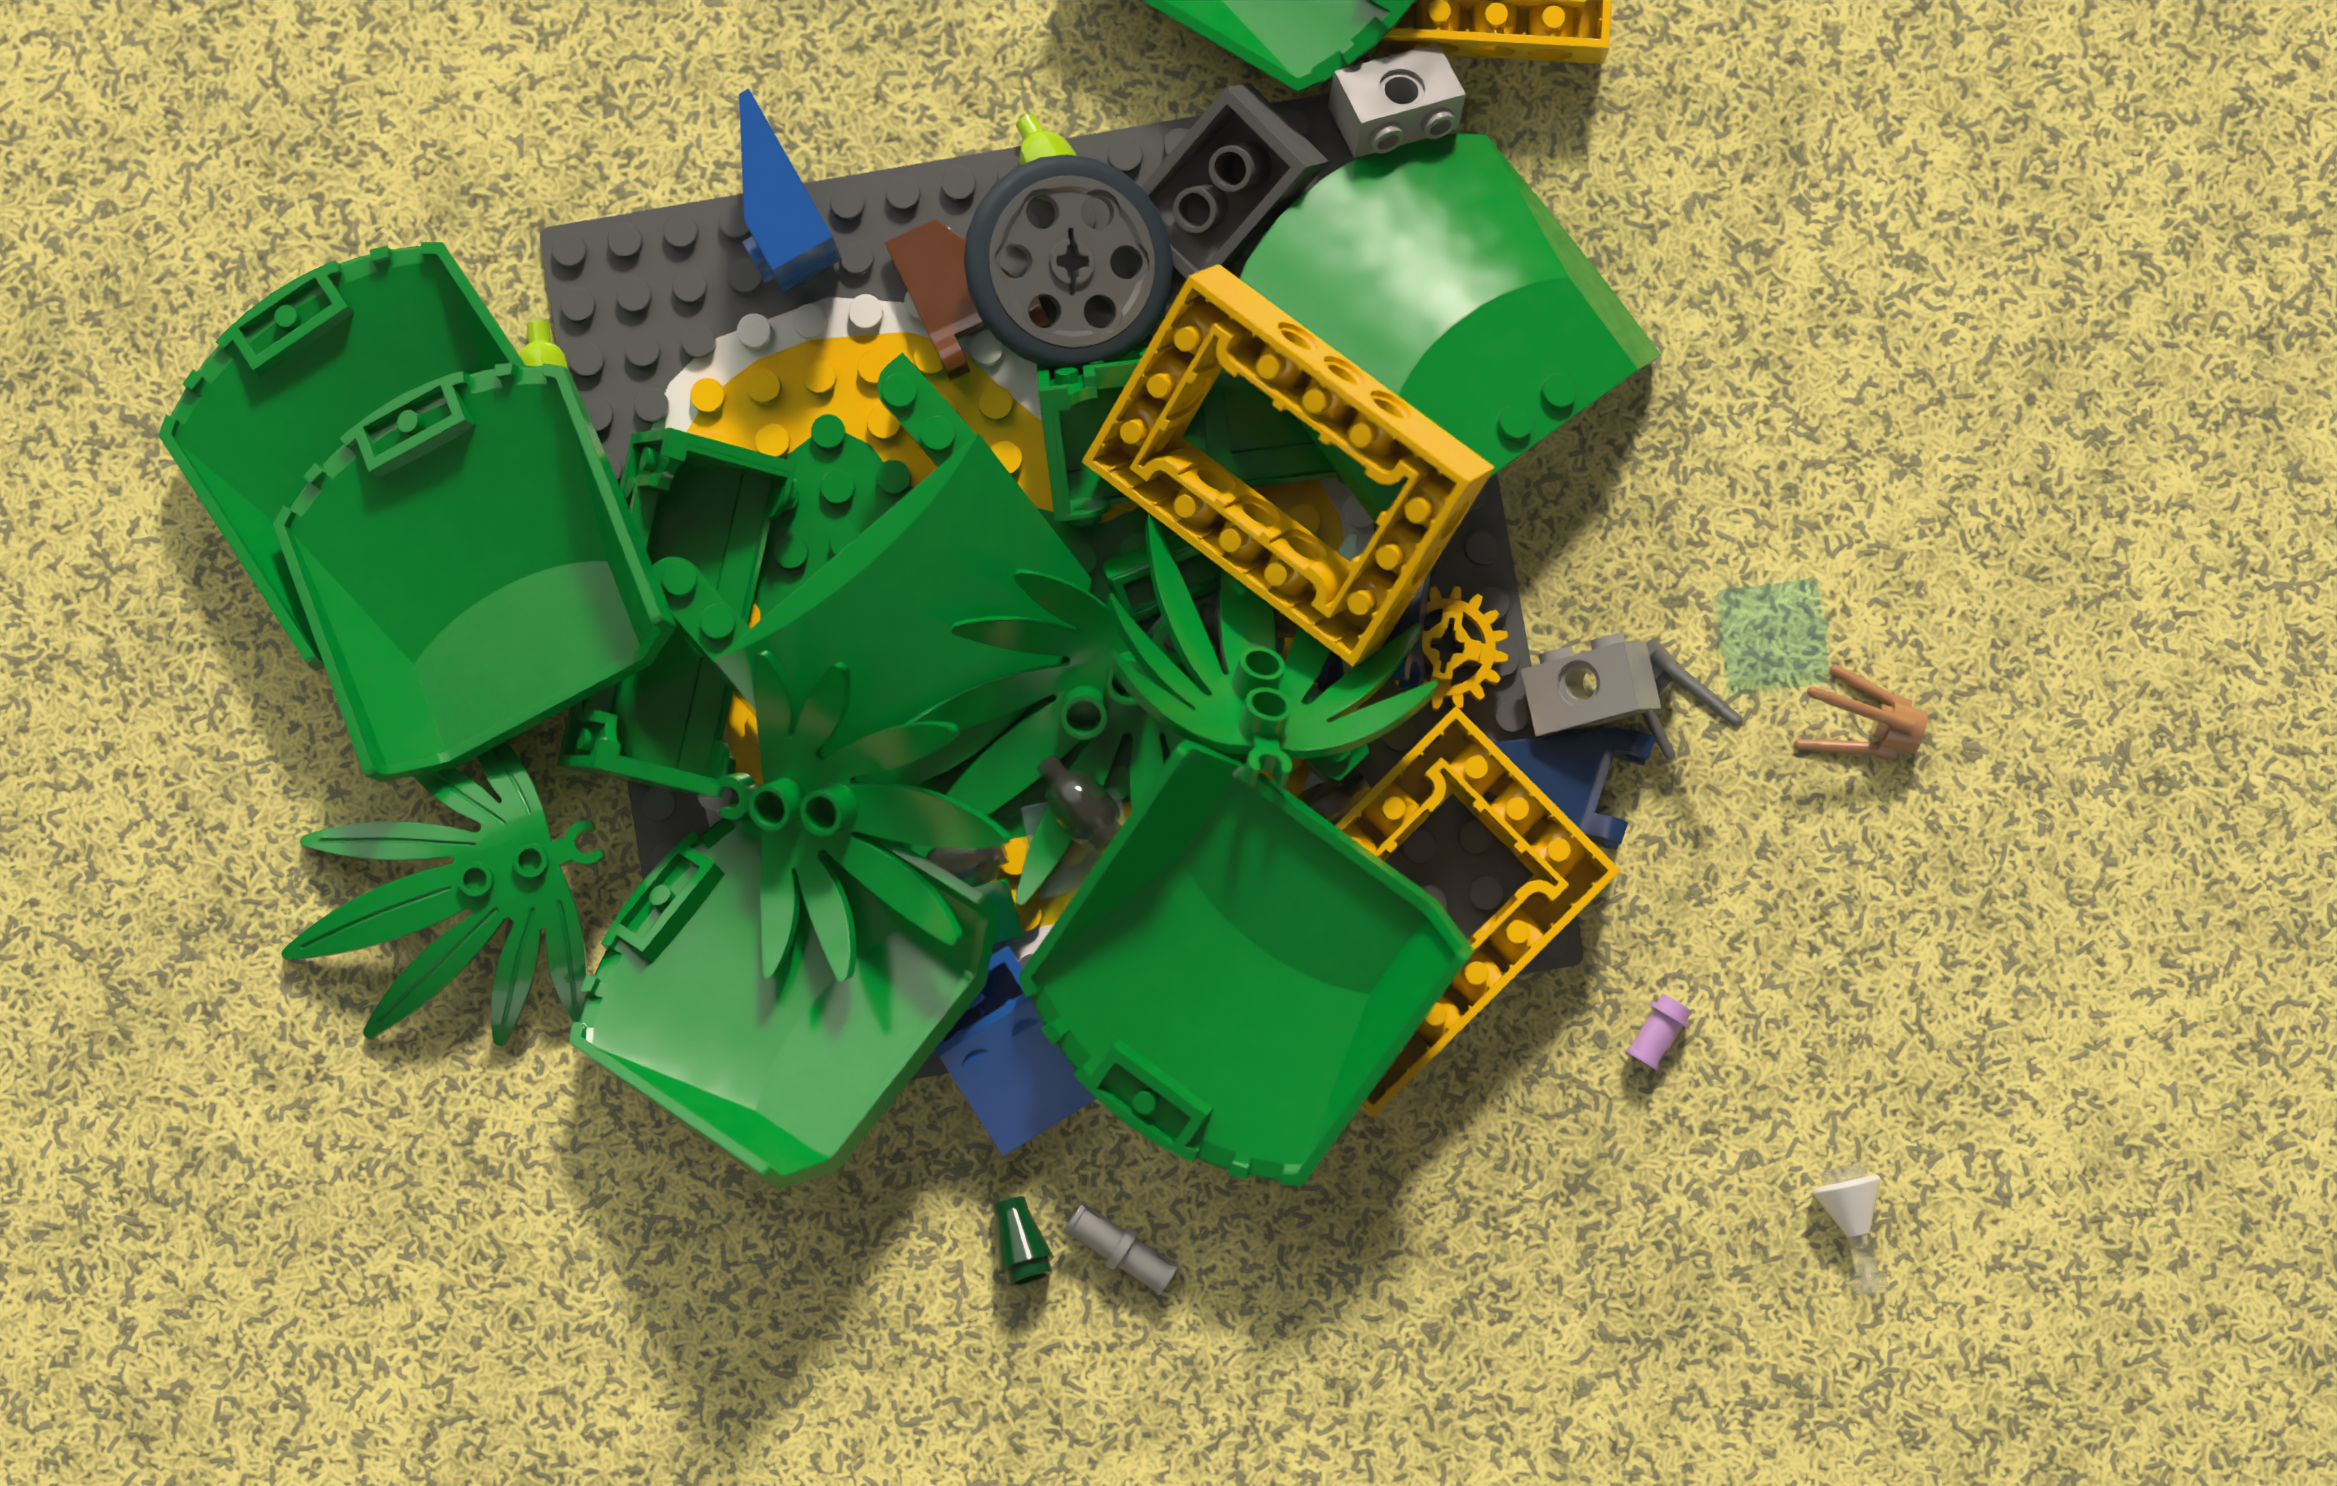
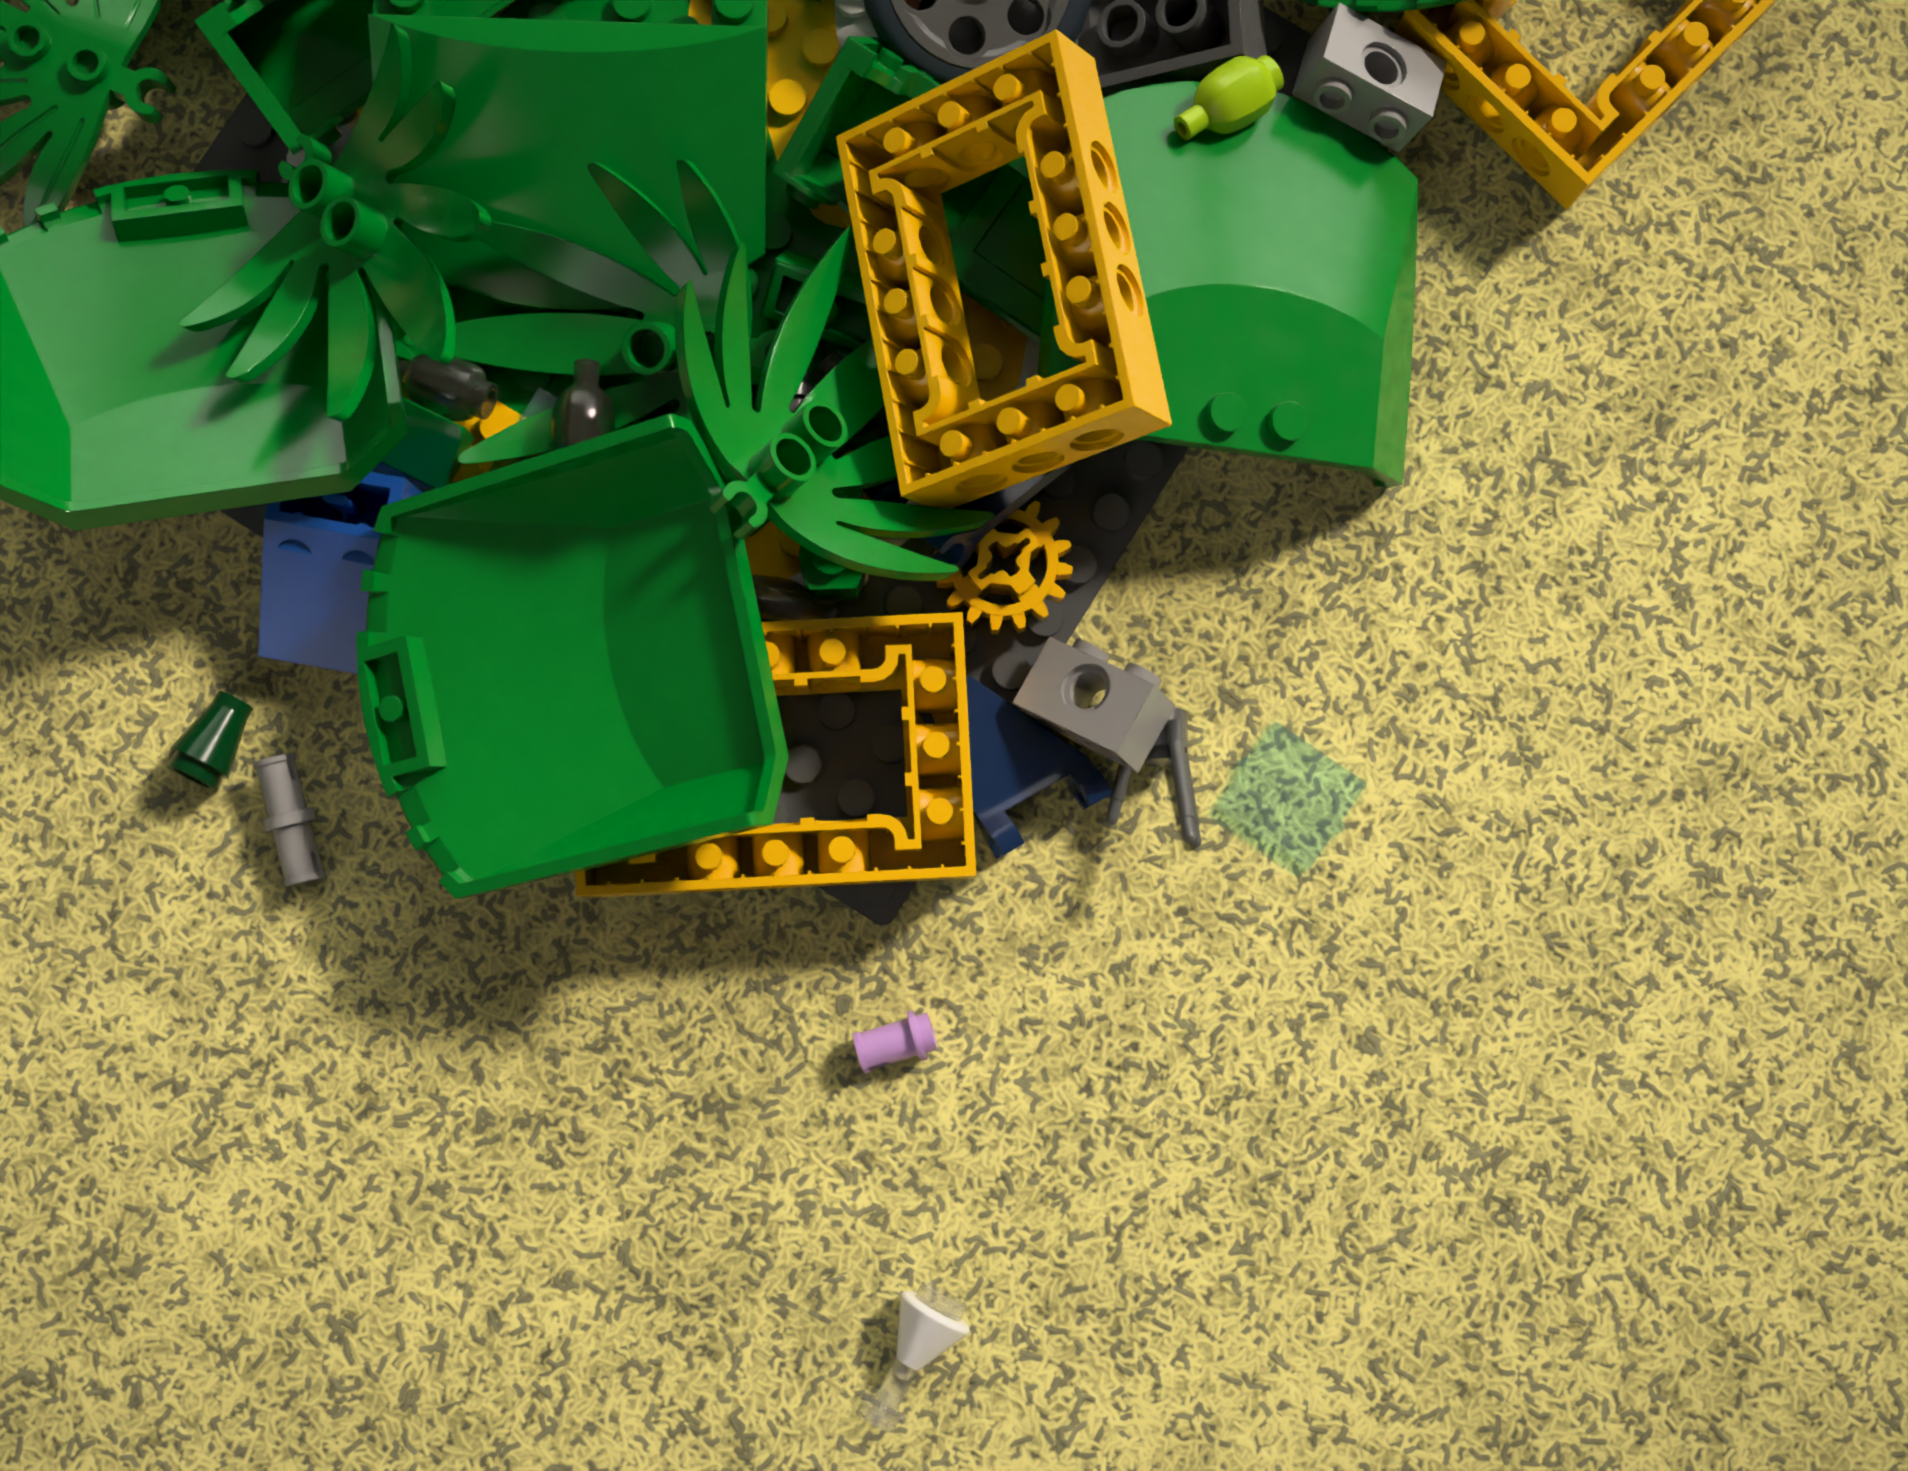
camera: 30 degrees right, 0 degrees up
(1324, 202) = (1232, 97): none -> lime plant
(1894, 721) = (1326, 960): medium nougat plant -> none

